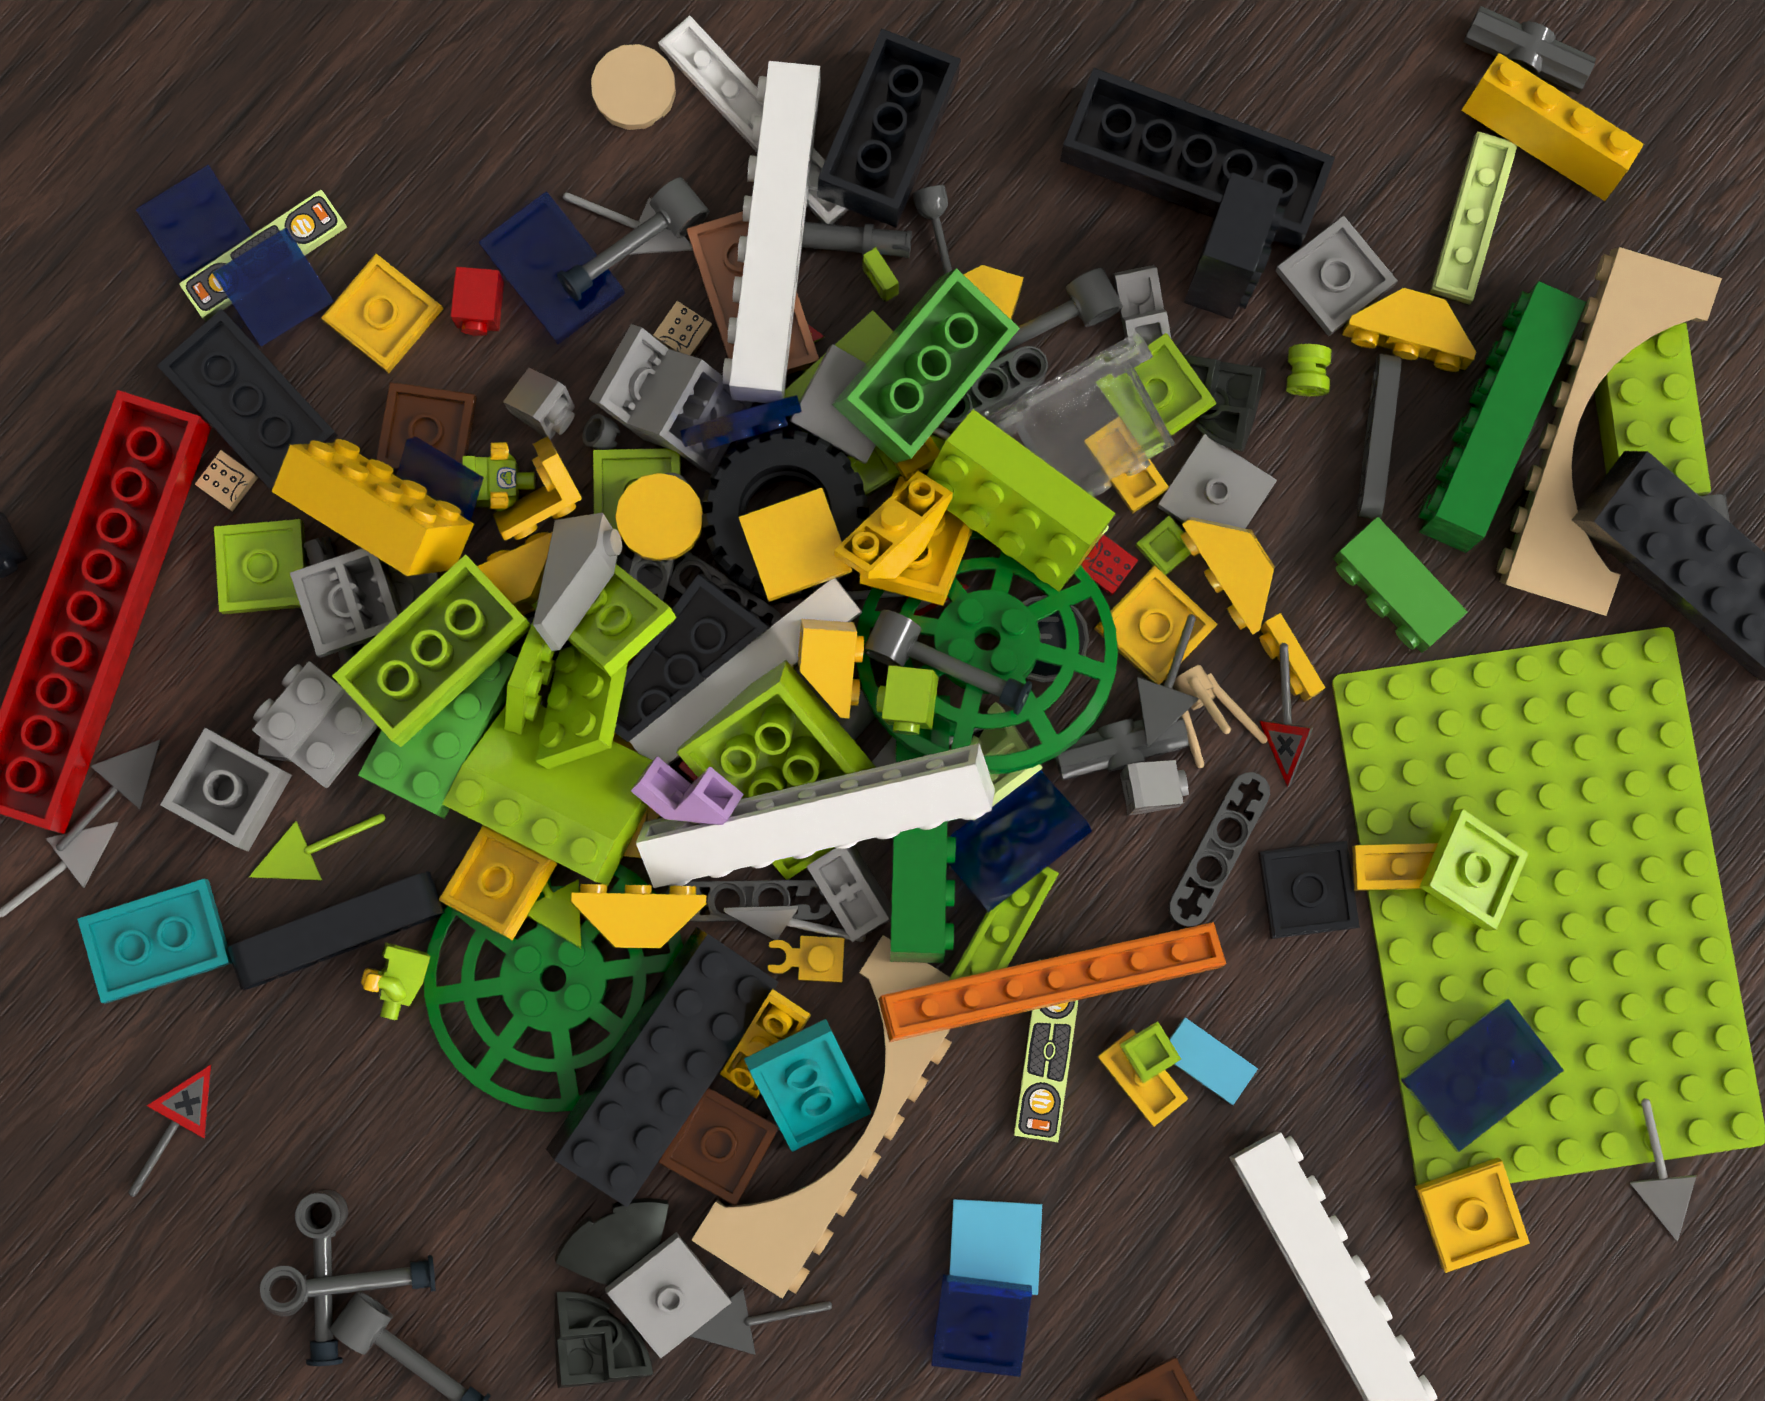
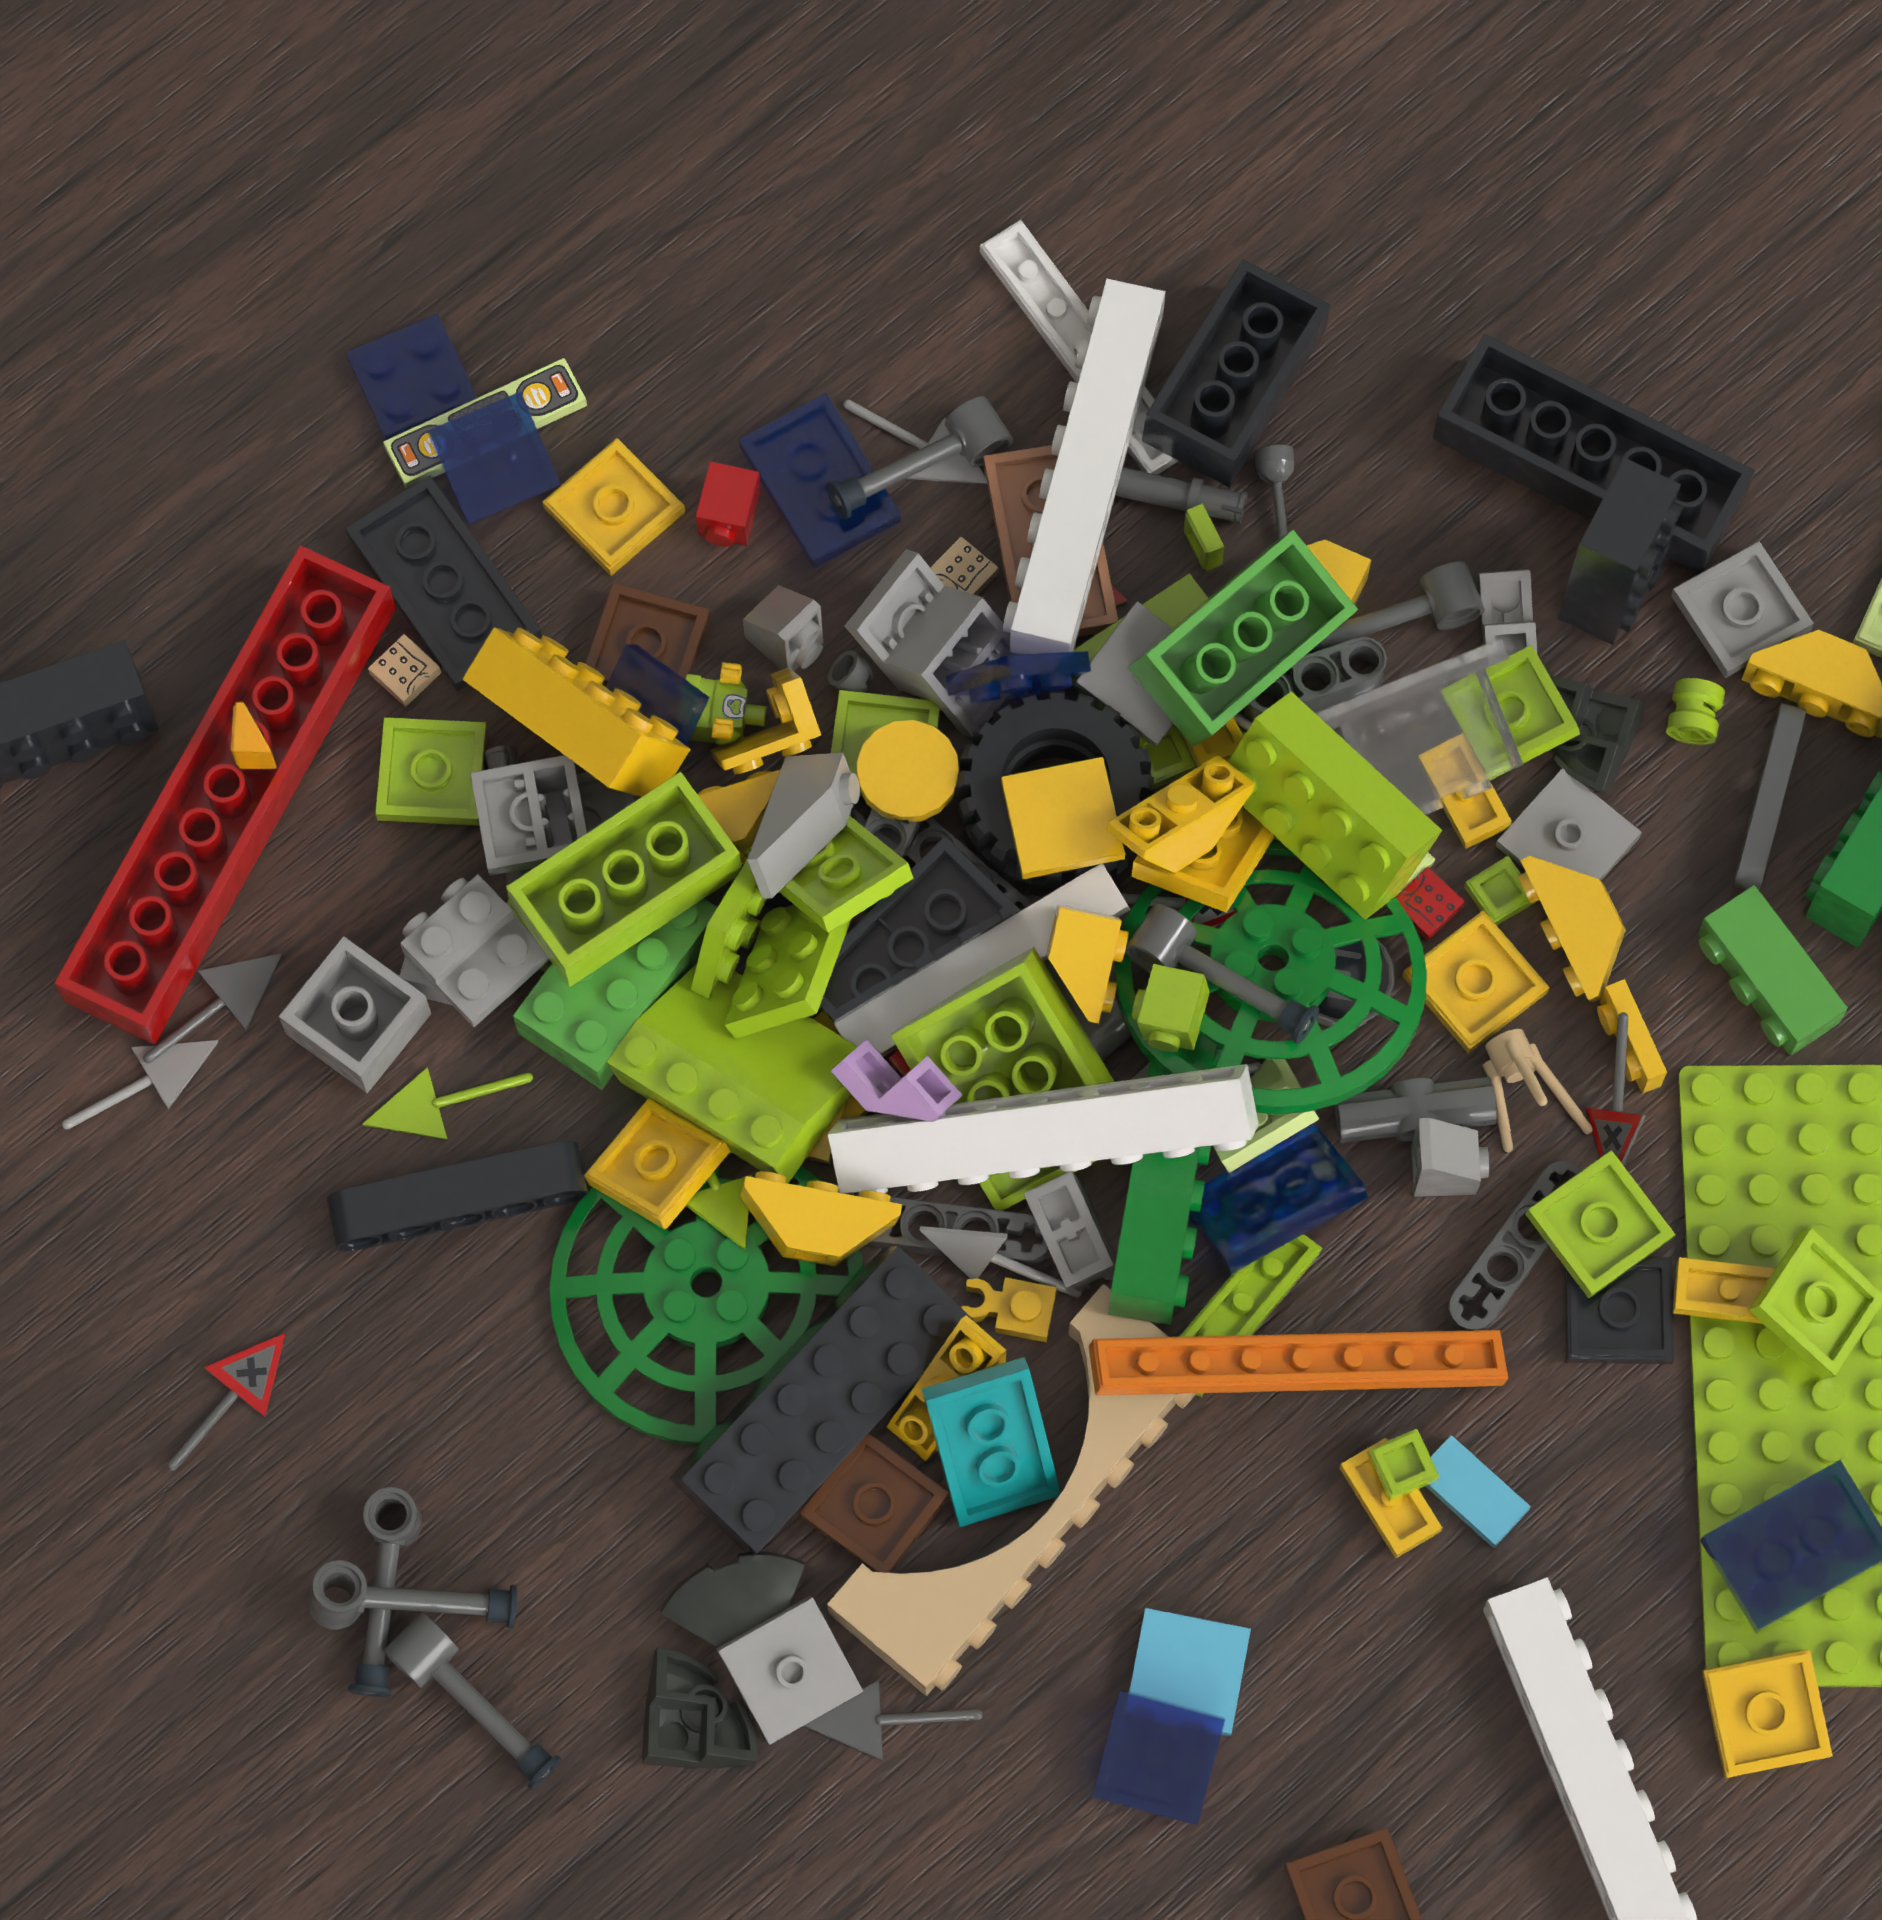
camera: 10 degrees right, 10 degrees down
(96, 572) = (248, 743): none -> light orange slope
(154, 941) = (243, 1179): teal plate -> none
(399, 978) = (524, 1260): lime piece -> none
(633, 86) = (943, 291): tan tile -> none
(1045, 1072) = (1276, 1473): tile -> none
(1161, 704) = (1470, 1065): dark grey piece -> none
(1286, 825) = (1600, 1224): none -> lime plate

